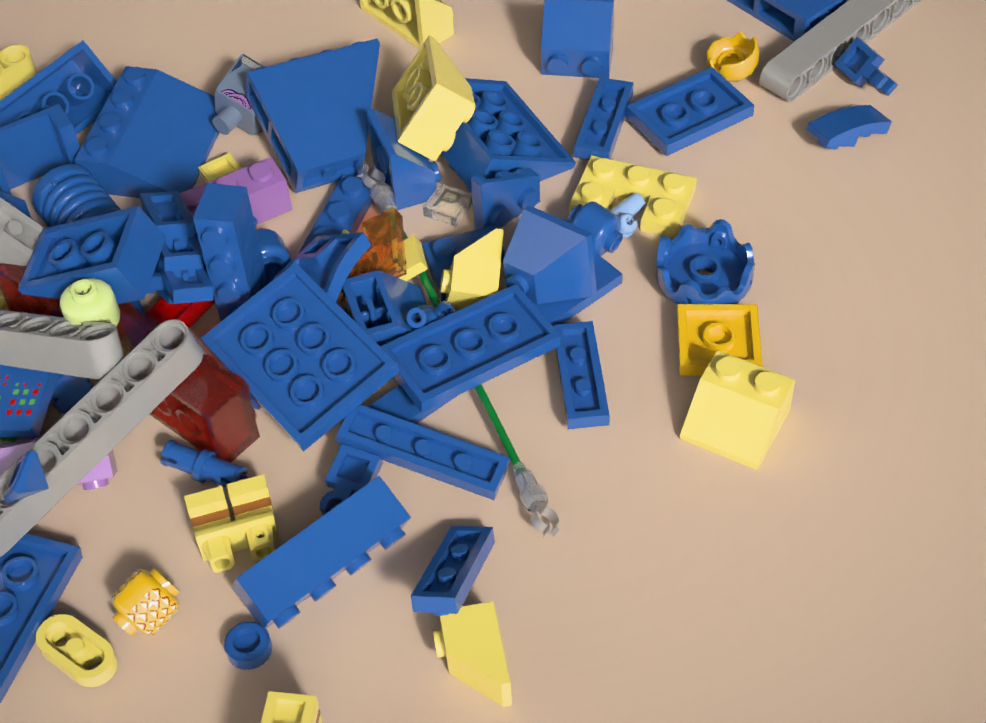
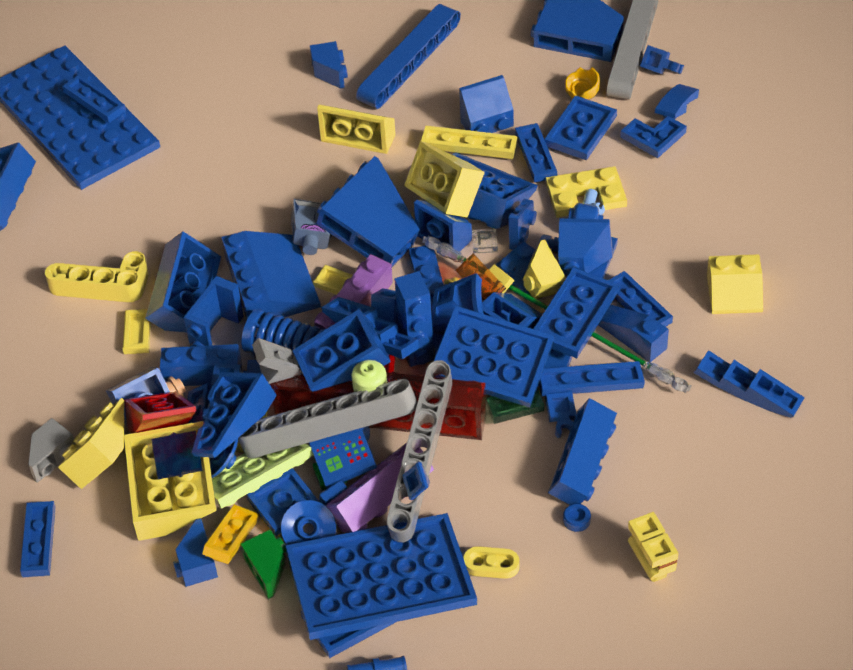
camera: 30 degrees left, 0 degrees up
(145, 602) = (508, 521): yellow head -> none
(201, 464) = (475, 442): blue pin -> none
(219, 535) = (518, 460): light yellow hips -> none
(274, 442) = (504, 410): none -> clear green plate
(426, 314) = (540, 306): blue arm -> none
(453, 570) = (660, 427): blue plate -> none
(475, 650) = (699, 461): light yellow slope -> none
(530, 74) = (470, 142): none -> light yellow plate
(543, 414) = (636, 331): none -> blue slope
(647, 572) = (749, 386): none -> blue slope
(706, 249) = (661, 204): blue plate -> none
(713, 328) = (692, 250): yellow plate -> none
(780, 165) = (653, 140): none -> blue plate

